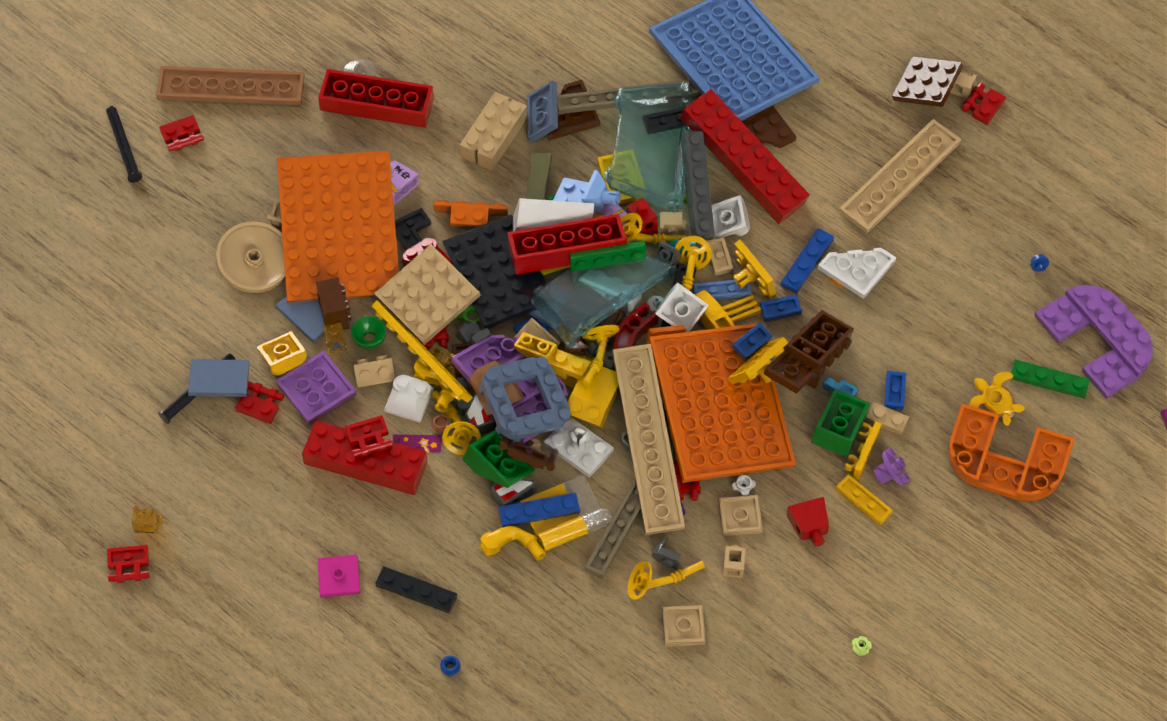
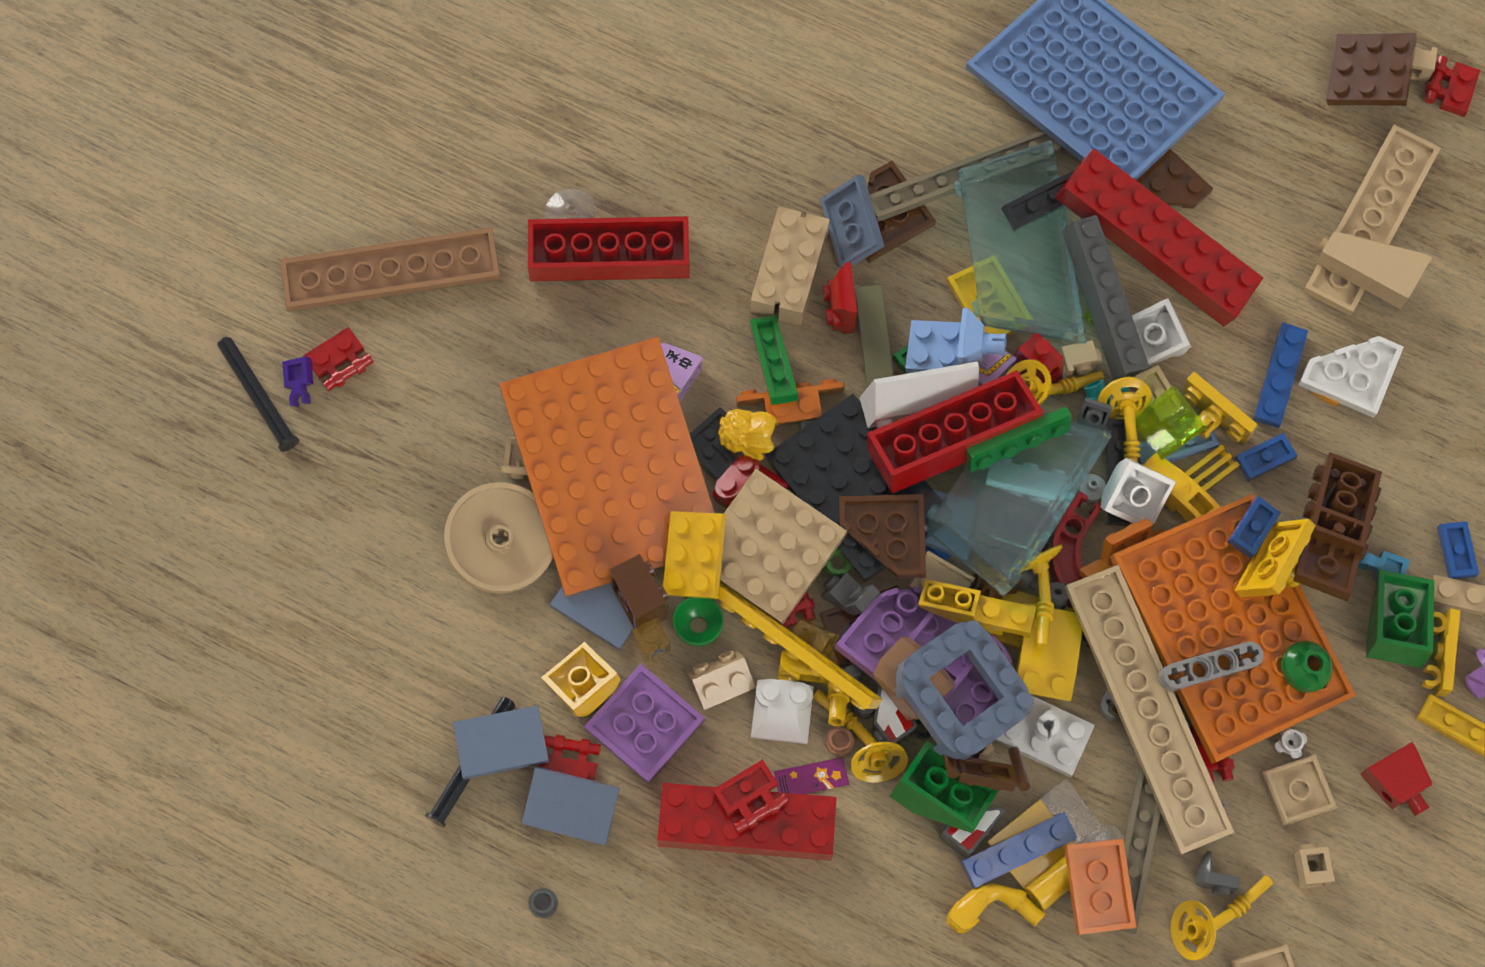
camera: 15 degrees left, 10 degrees up
(151, 138) = (298, 376): none -> dark purple plate
(219, 480) = (543, 903): none -> dark grey plate
(253, 425) = (570, 805): none -> sand blue tile
(376, 289) = (694, 554): none -> yellow plate
(433, 223) = (748, 432): none -> yellow hair
(464, 184) = (773, 360): none -> green plate
(507, 296) = (889, 530): none -> reddish brown plate
(521, 157) = (841, 300): none -> red slope
(584, 539) = (1100, 886): none -> orange plate
(697, 423) = (1211, 666): none -> light grey beam
(718, 271) = (1169, 423): none -> clear neon green plate
(760, 442) = (1297, 671): none -> green piece
(889, 202) = (1374, 266): none -> tan slope

